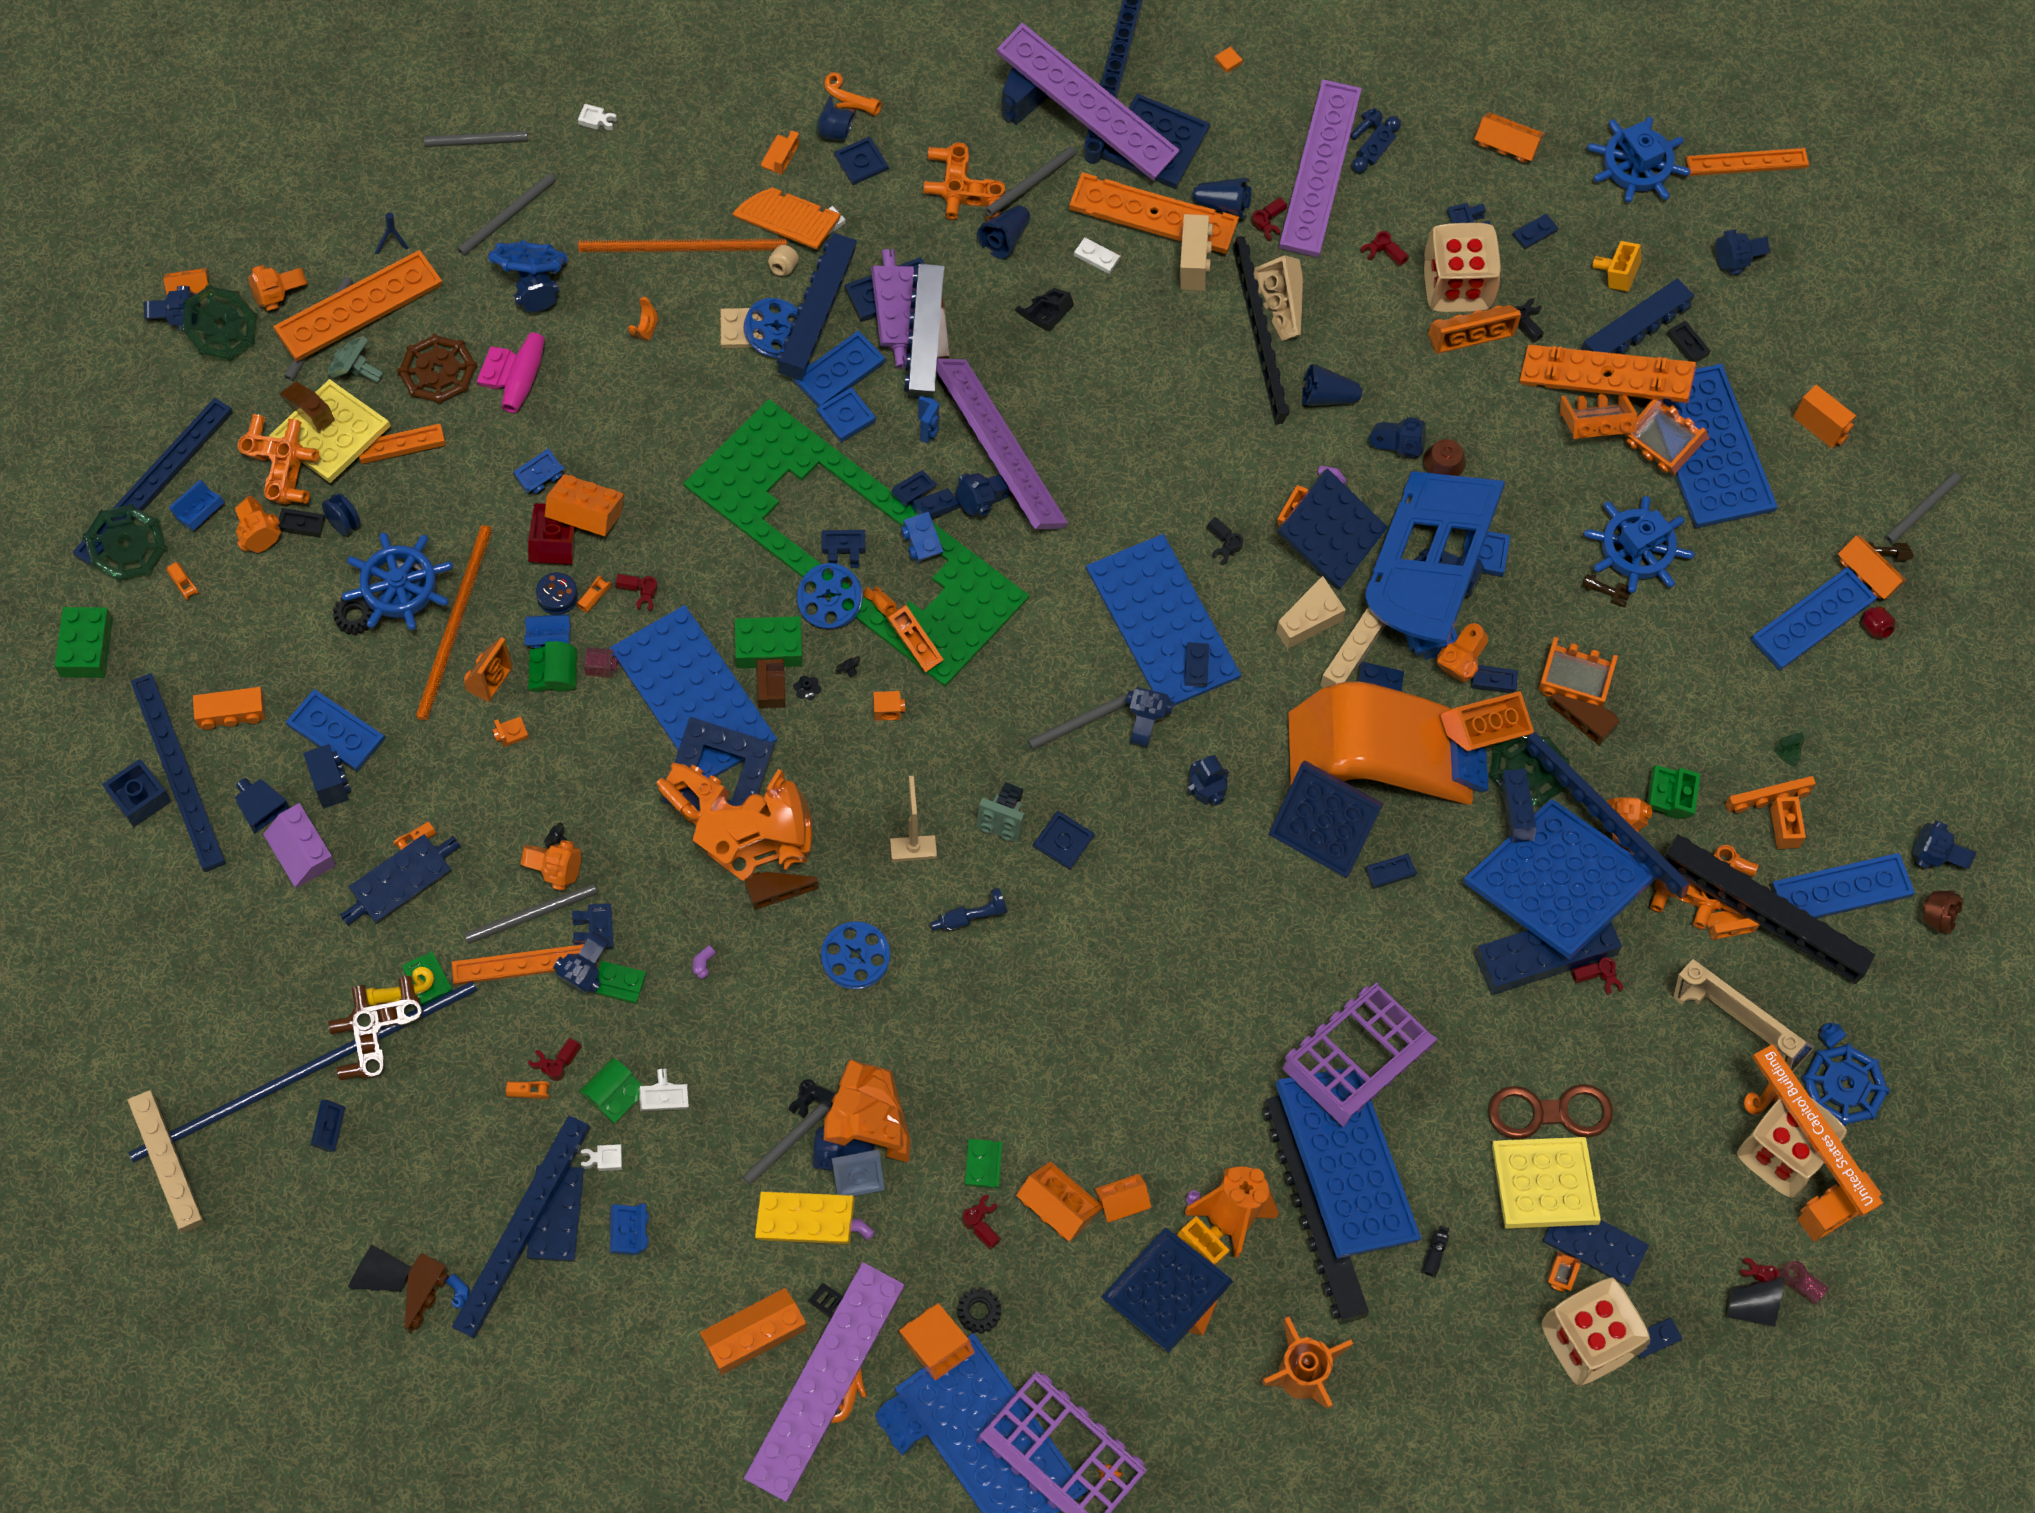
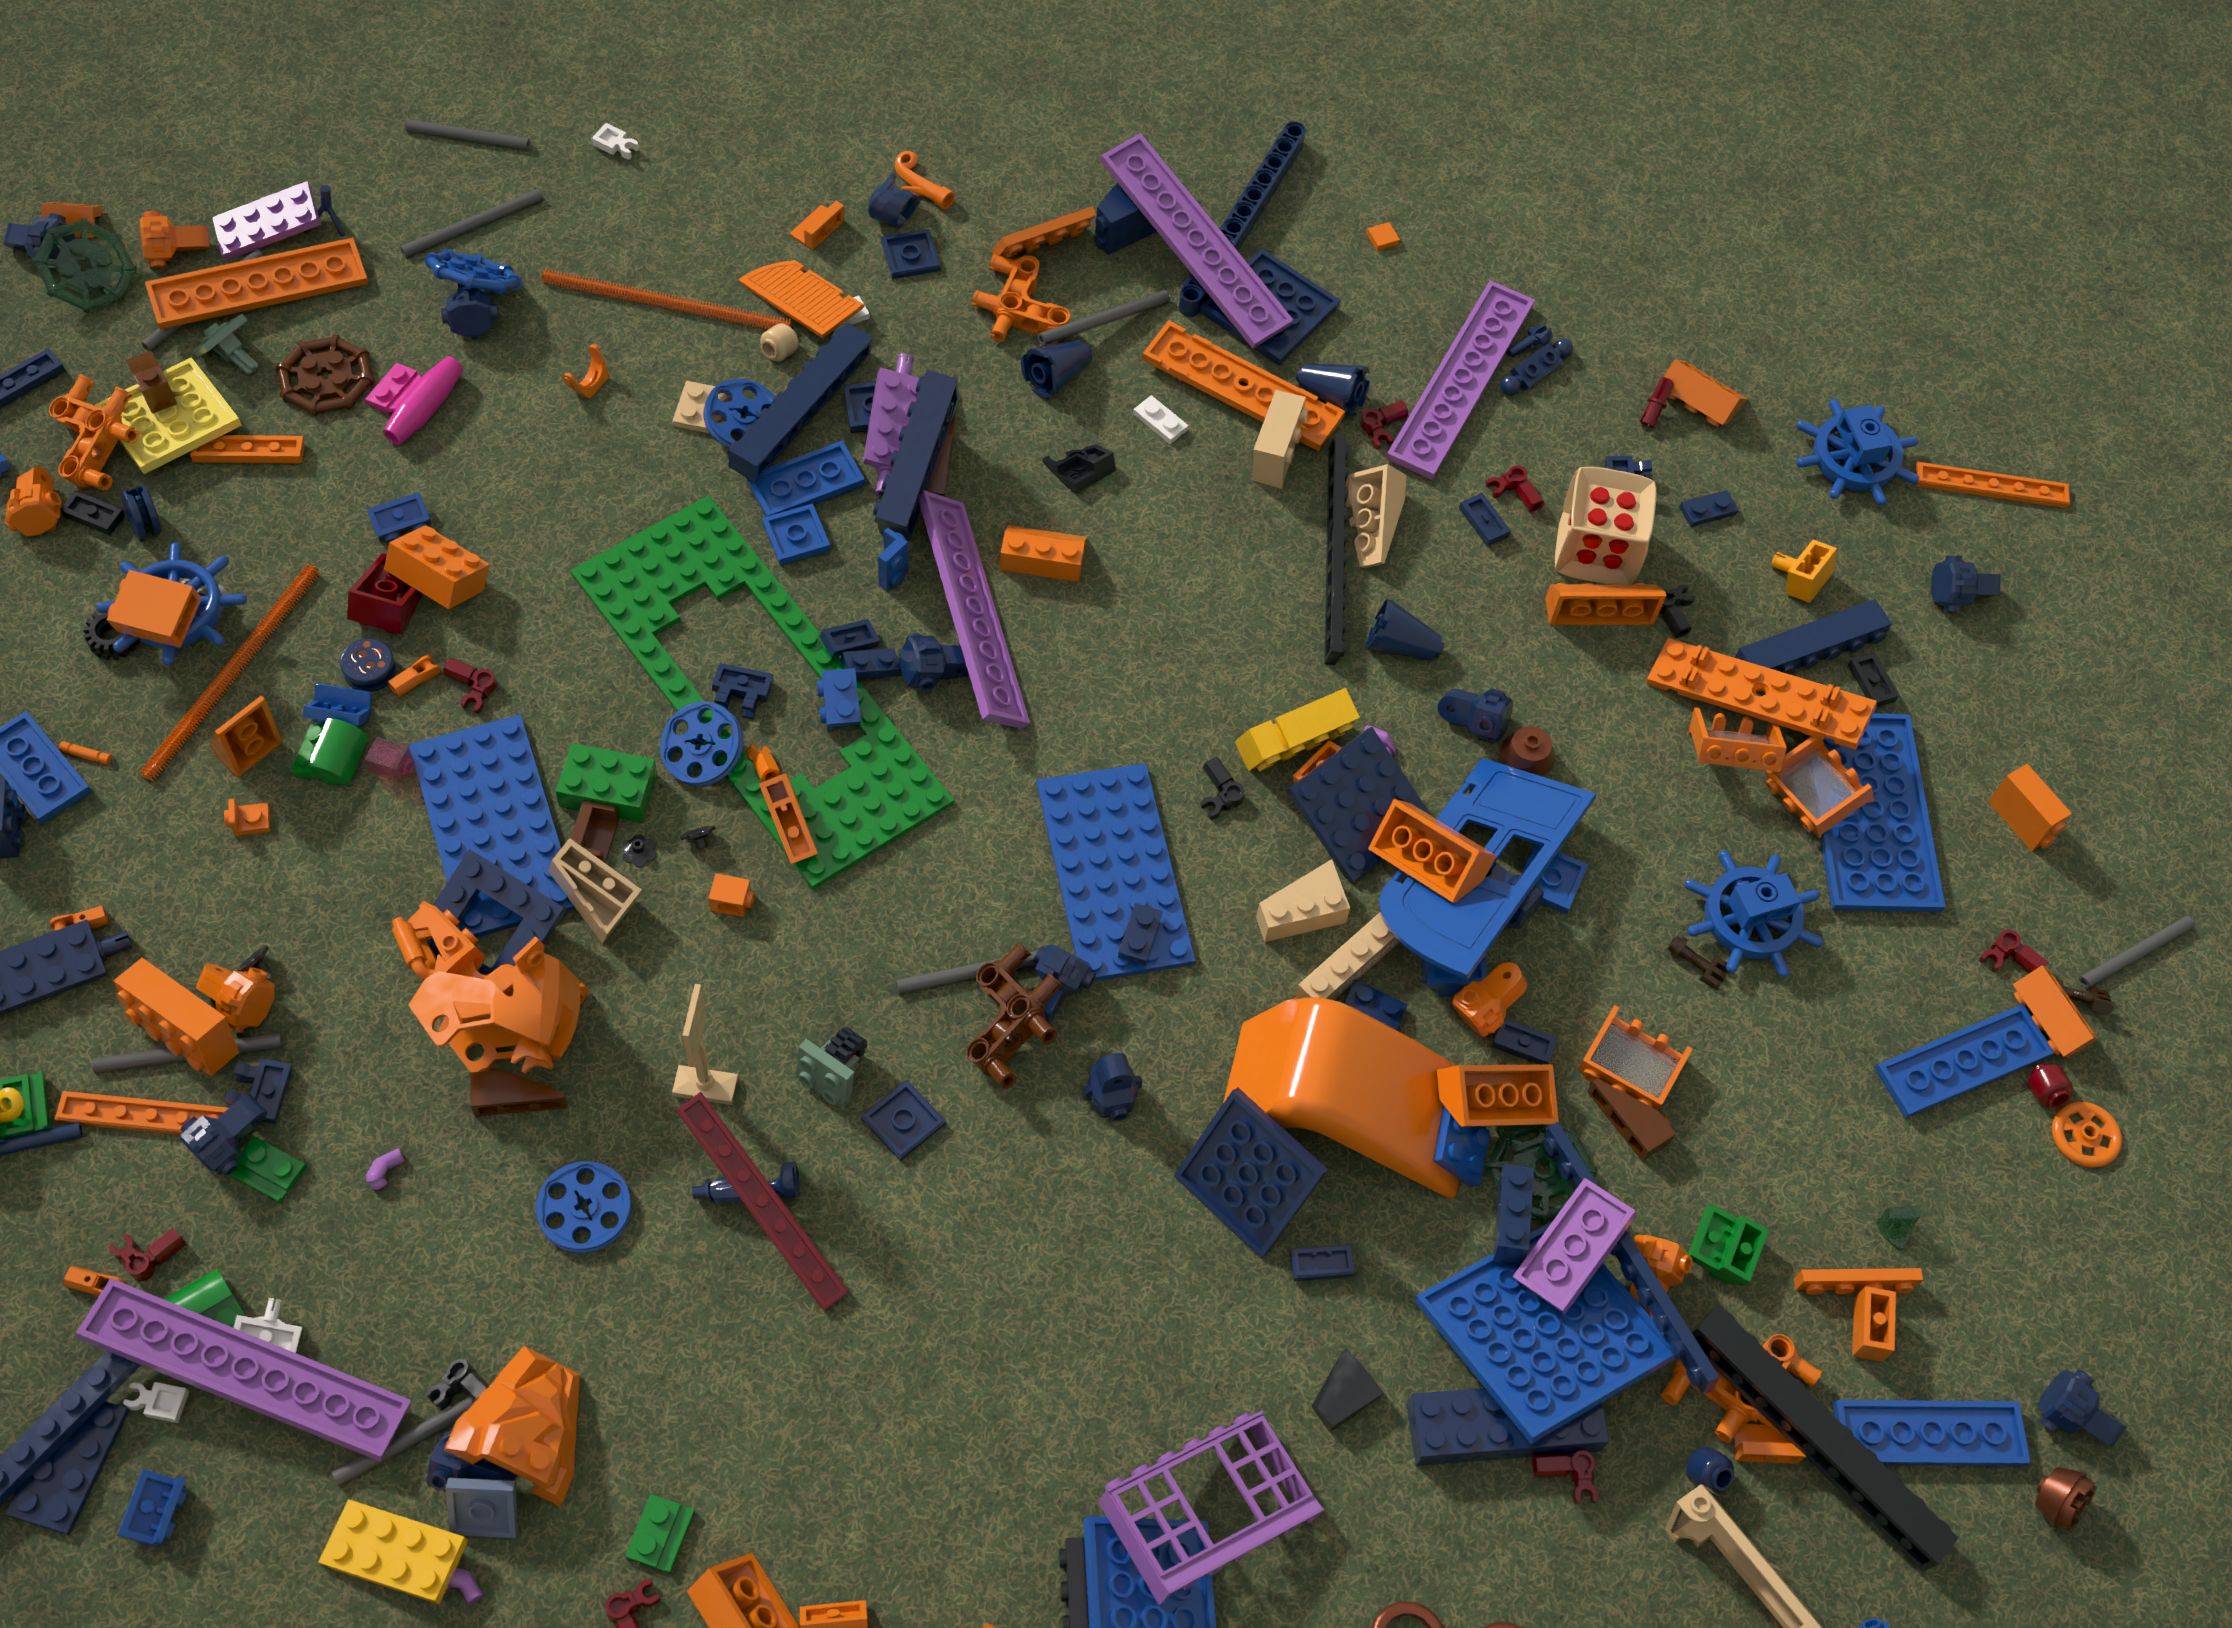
camera: 10 degrees right, 5 degrees down
(345, 251) = (266, 221): none -> plate
(369, 710) = (85, 753): none -> orange wheel
(392, 589) = (154, 608): none -> orange brick
(519, 889) = (176, 1017): none -> orange brick
(661, 1120) = (244, 1369): none -> medium lavender plate
(787, 724) = (593, 888): none -> tan wedge
(965, 121) = (1046, 232): none -> orange plate
(984, 920) = (762, 1201): none -> dark red tile
(1039, 385) = (1042, 553): none -> orange slope
(1125, 752) = (1017, 1020): none -> reddish brown pin
(1271, 483) = (1297, 731): none -> yellow piece
(1367, 280) = (1484, 519): none -> dark blue plate
(1394, 553) = (1430, 851): none -> orange slope
(1430, 956) = (1345, 1392): none -> black slope
(1476, 154) = (1657, 402): none -> dark red axle
(1568, 816) = (1575, 1245): none -> medium lavender plate
(1695, 948) = (1710, 1469): none -> dark blue head
(1830, 524) = (2010, 944): none -> dark red bar
(1903, 666) = (2073, 1150): none -> orange plate

